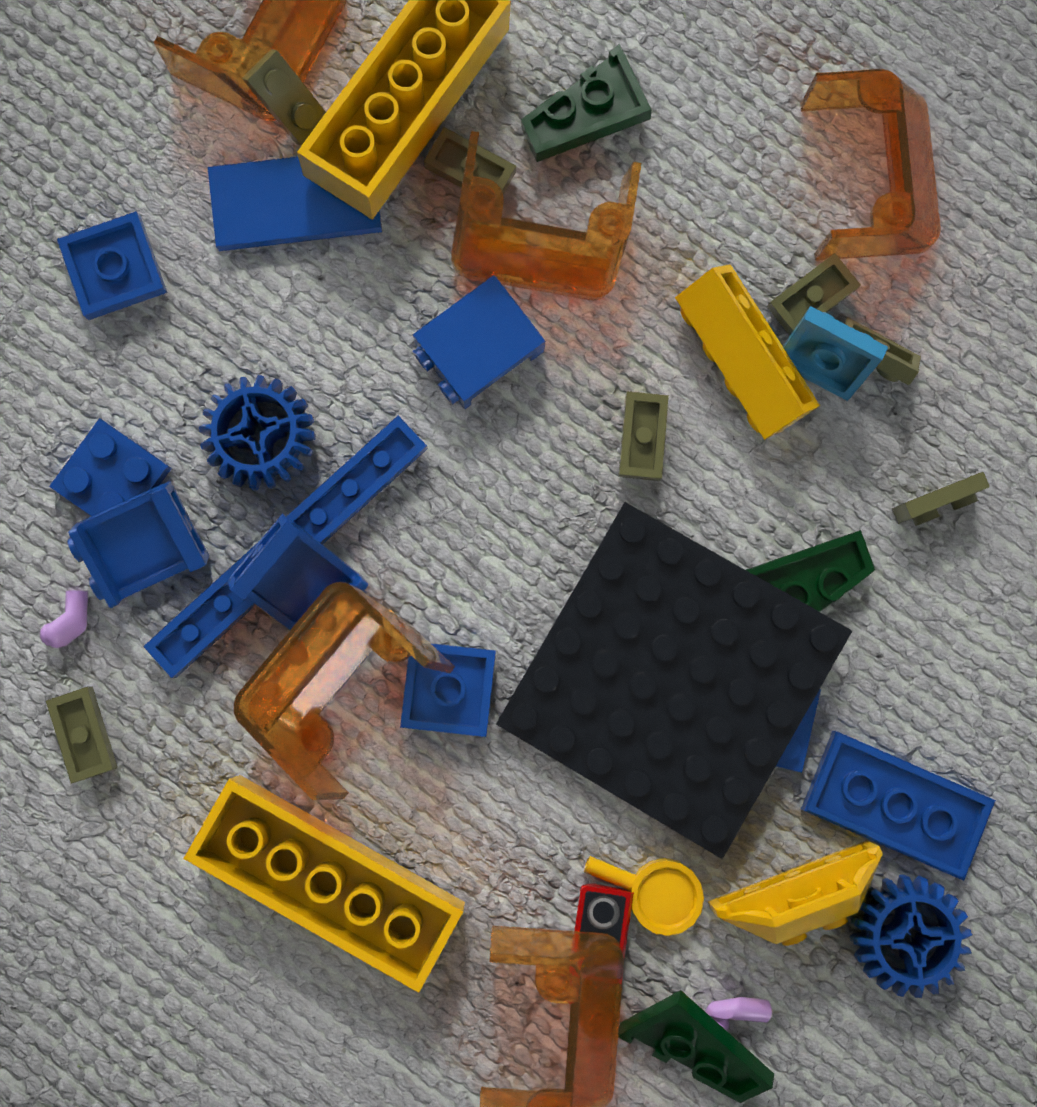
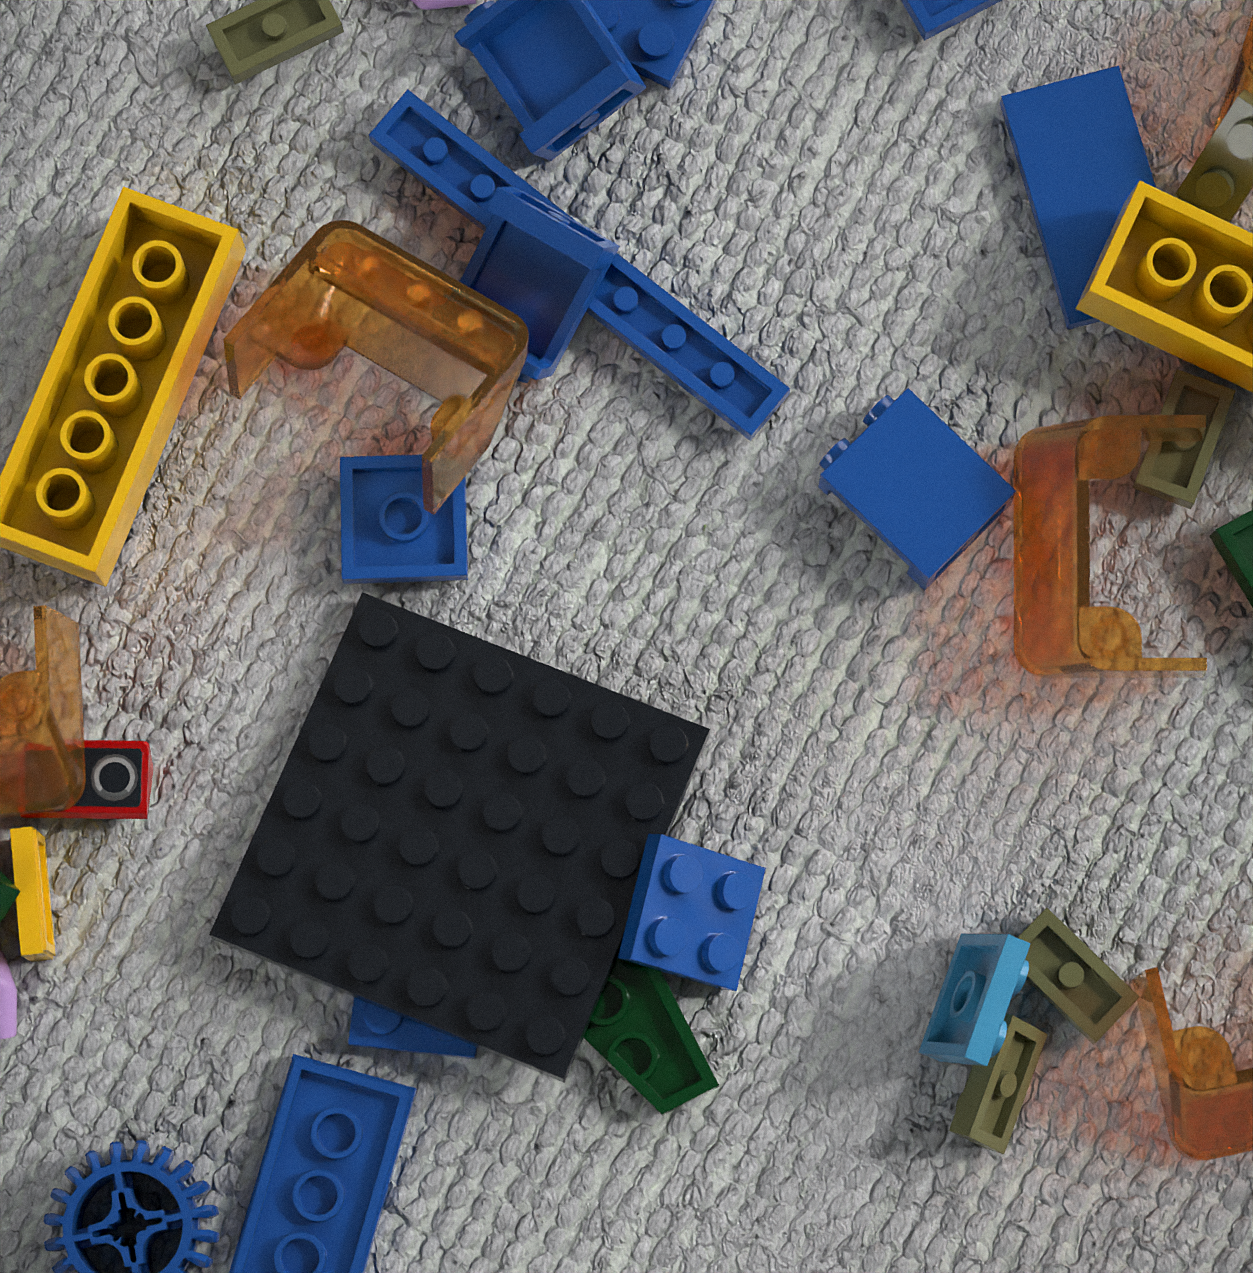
camera: 90 degrees right, 5 degrees down
(240, 435) = (714, 209): blue gear -> none
(643, 436) = (814, 747): olive plate -> none
(665, 893) = (149, 866): yellow piece -> none
(676, 978) = (34, 899): none -> yellow tile
(746, 351) = (963, 879): yellow brick -> none
(746, 531) = (691, 912): none -> blue plate
(803, 897) = (166, 1060): yellow wedge -> none
(958, 494) = (796, 1228): olive plate -> none

